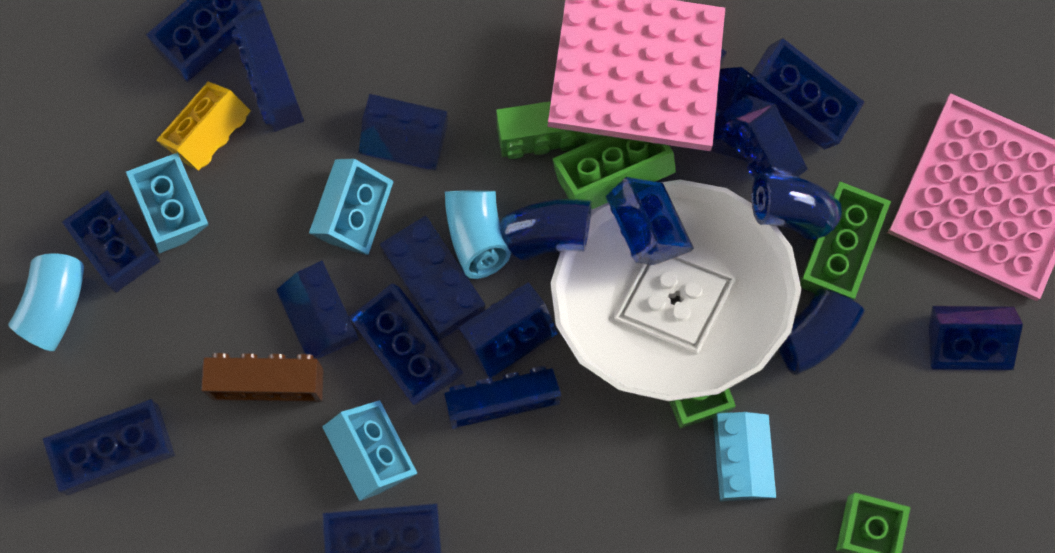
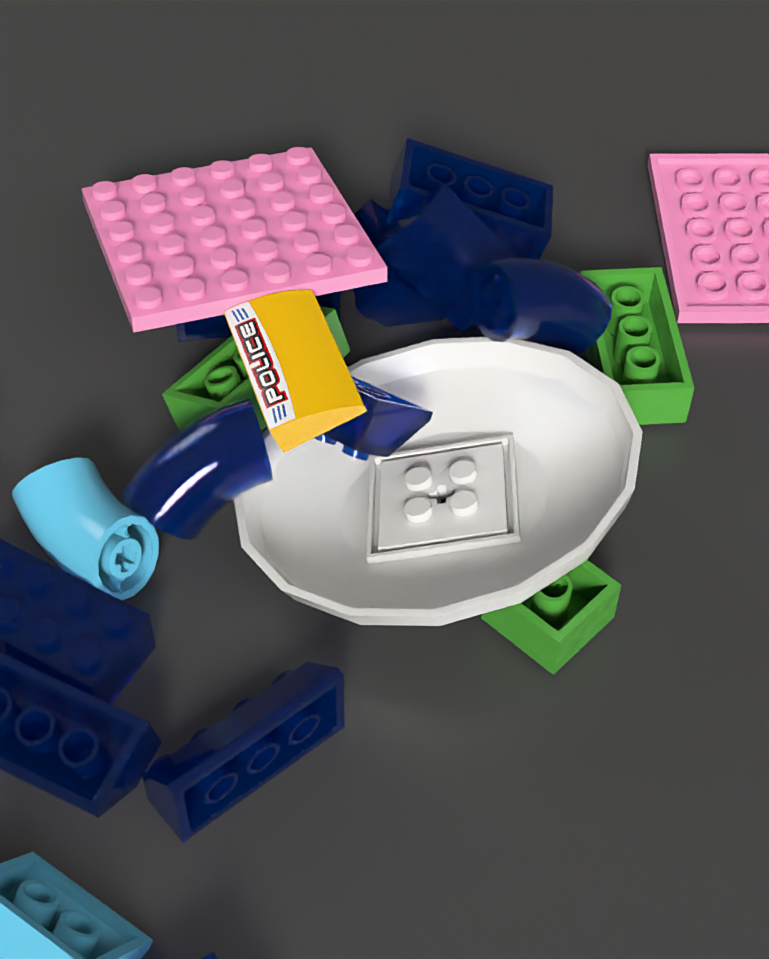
camera: 25 degrees left, 25 degrees down
(508, 330) = (206, 637): clear blue brick -> none
(526, 131) = (123, 373): bright green brick -> none
(625, 191) = (294, 366): none -> yellow slope
(744, 456) = (670, 668): medium azure slope -> none
(820, 330) = (675, 450): clear blue brick -> none

